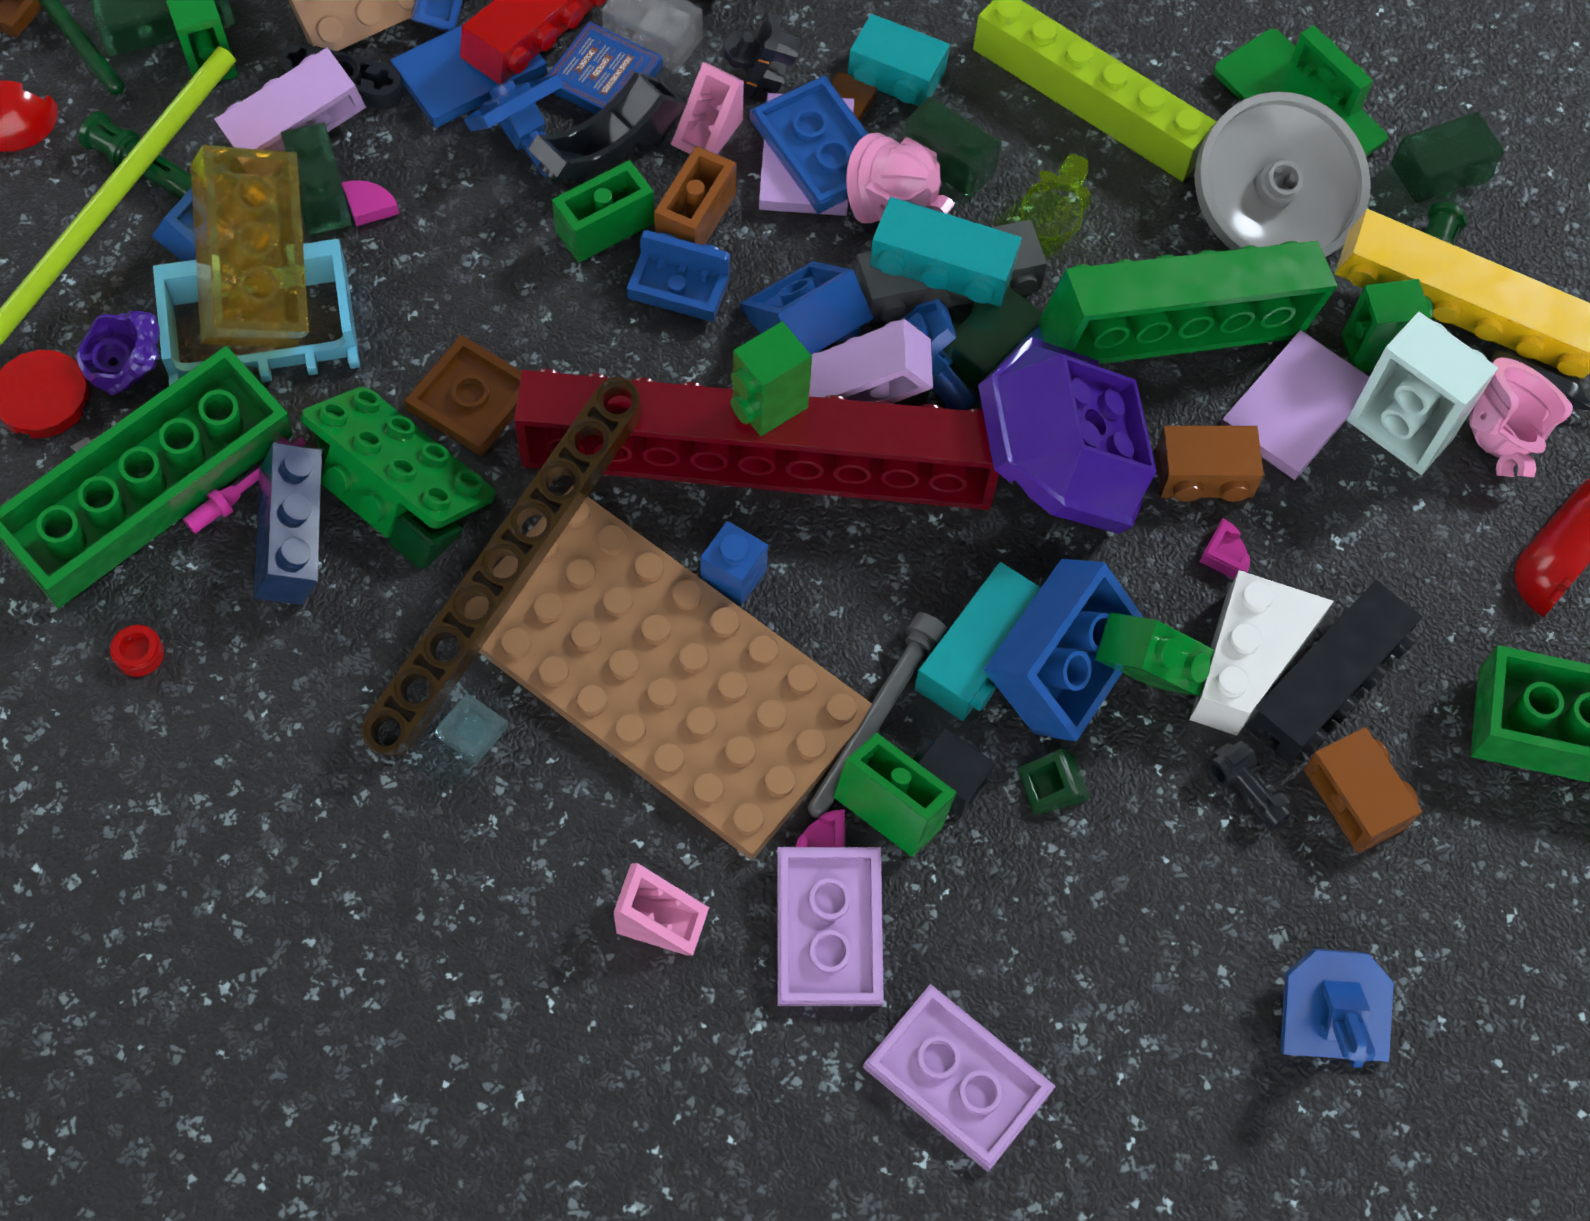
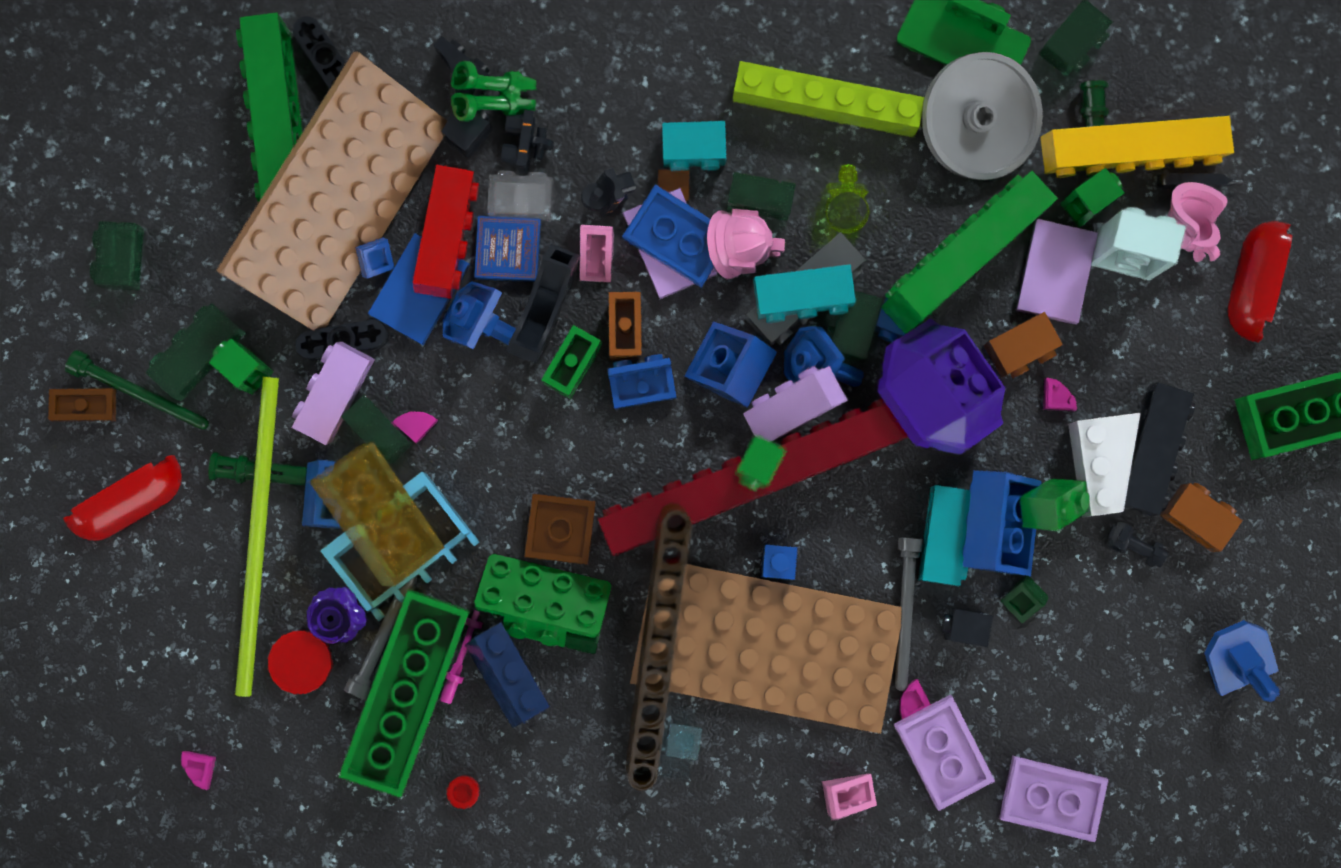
camera: 25 degrees left, 20 degrees up
(894, 794) = (945, 661): green brick -> none

